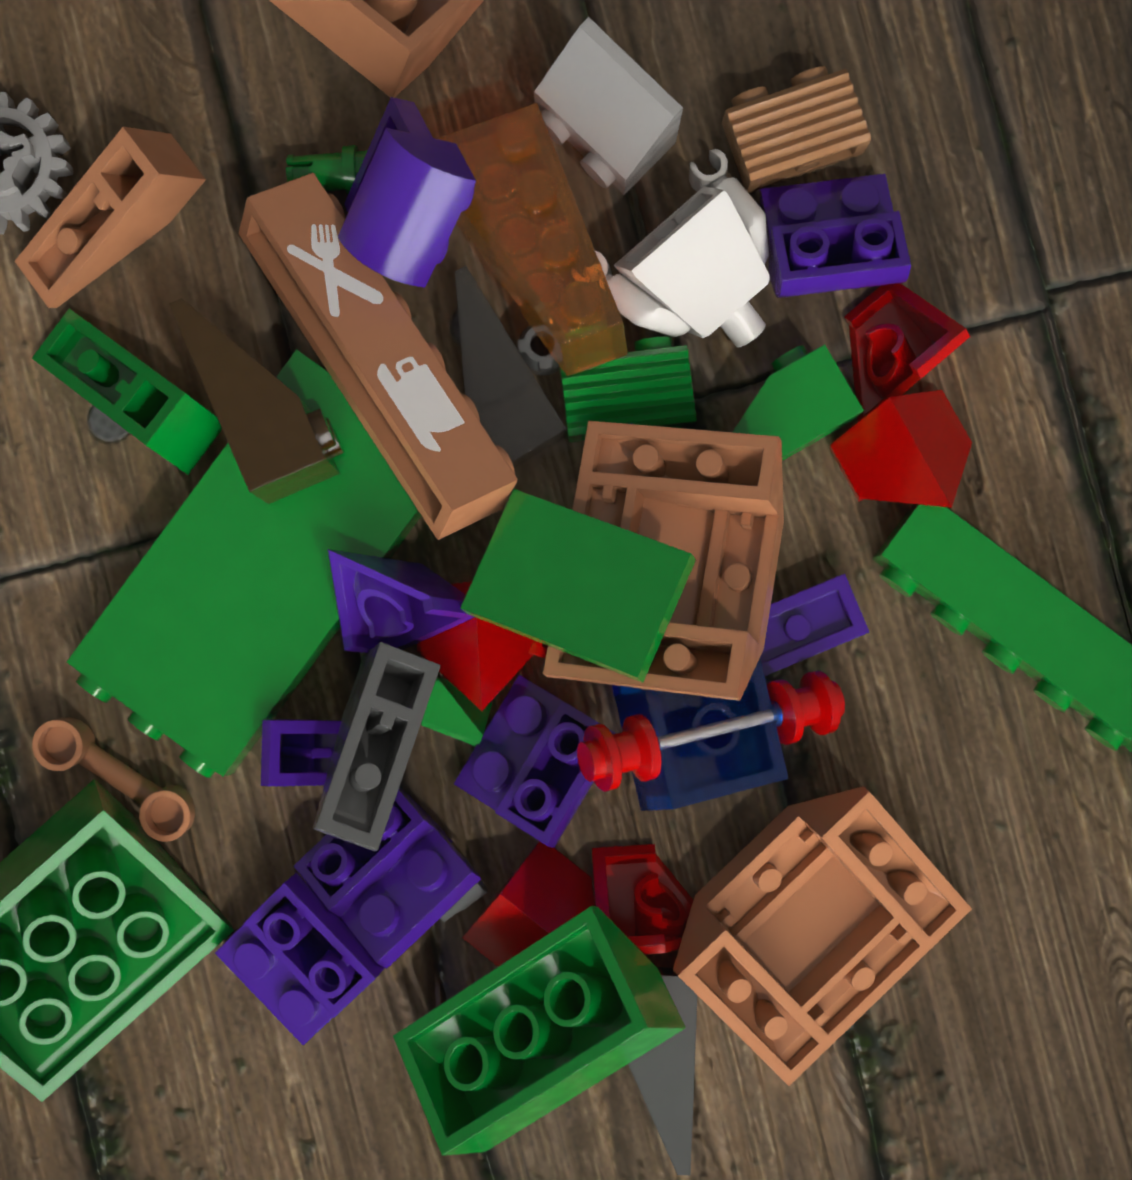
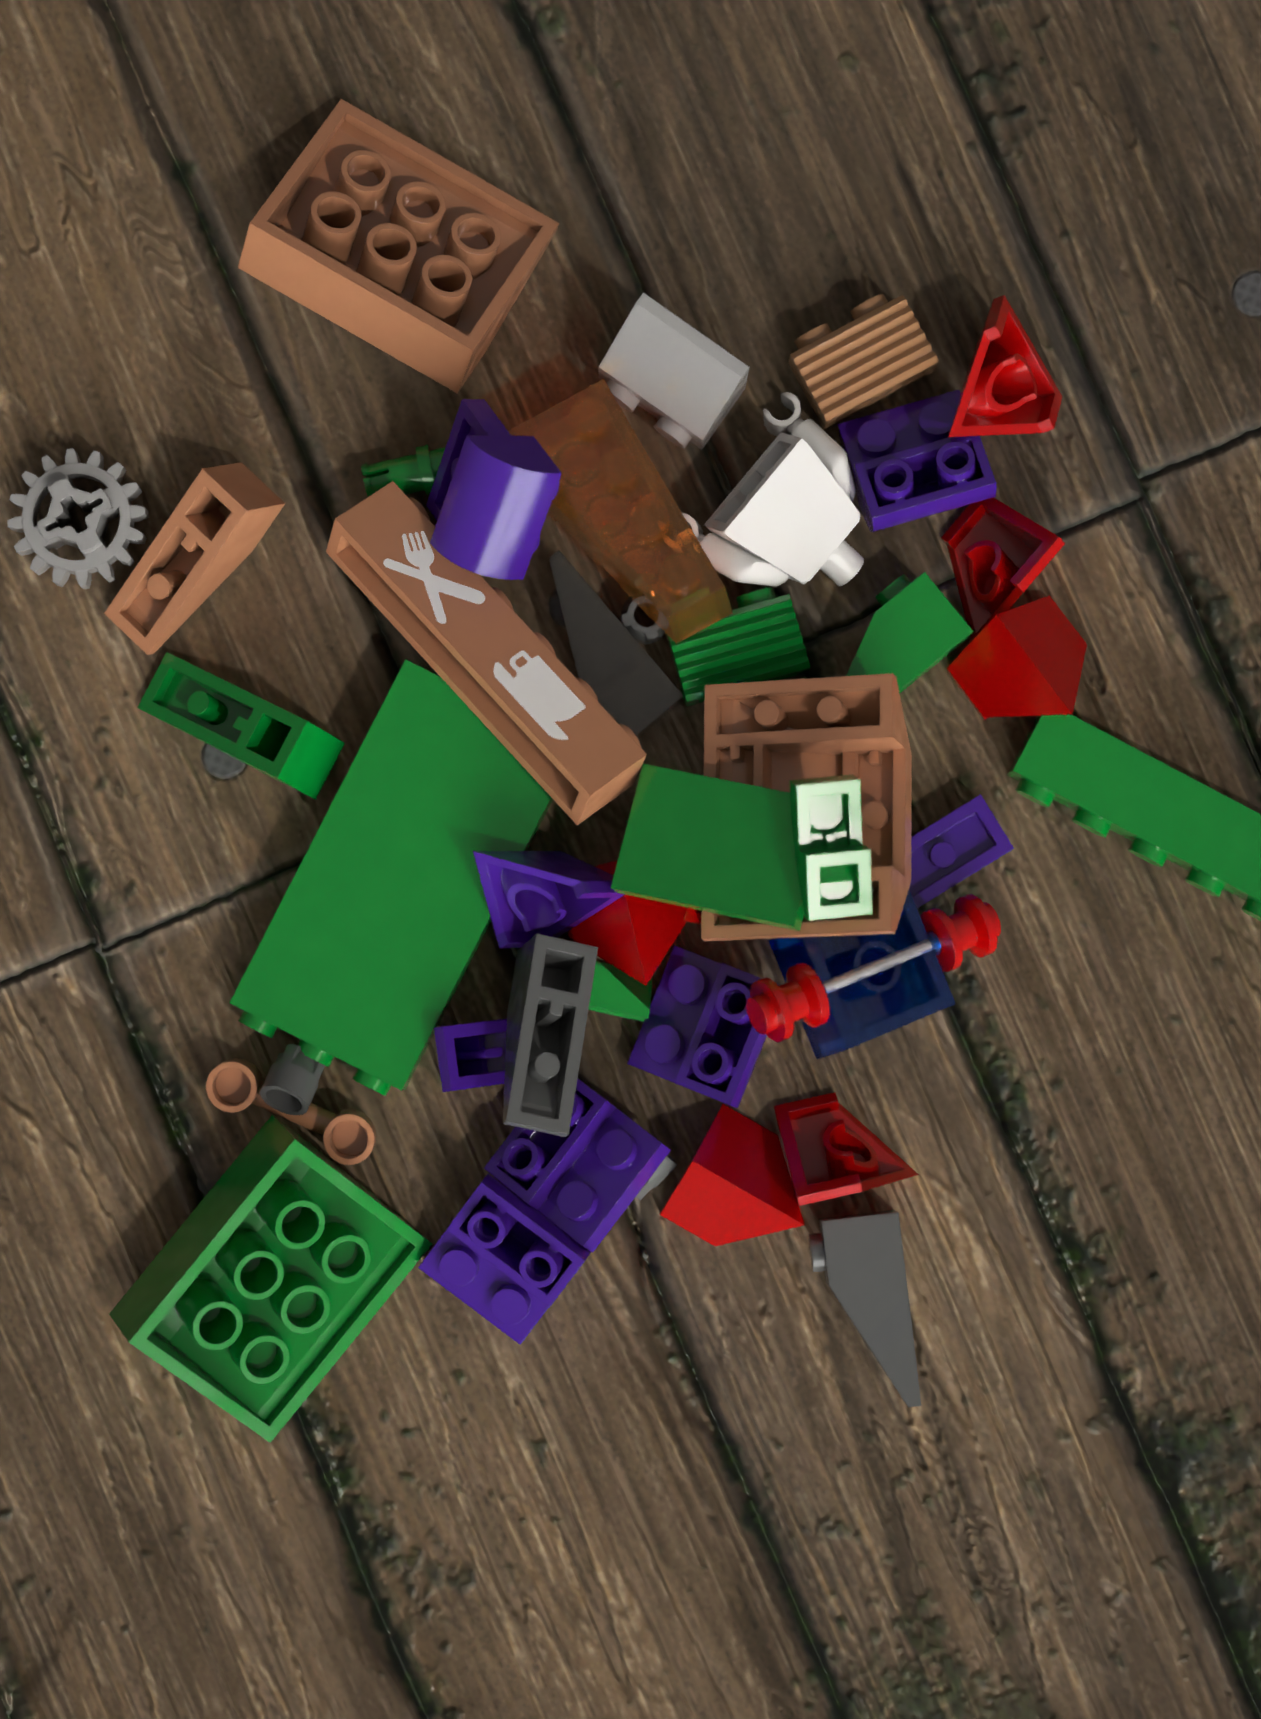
camera: 10 degrees left, 0 degrees up
(117, 749) = (291, 1081): none -> dark grey hose
(267, 426) = (394, 734): dark brown slope -> none
(535, 1033) = (748, 1290): green slope -> none
(686, 602) = (830, 848): none -> slope
(813, 926) = (1006, 1146): nougat slope -> none
(933, 170) = (1006, 382): none -> red slope

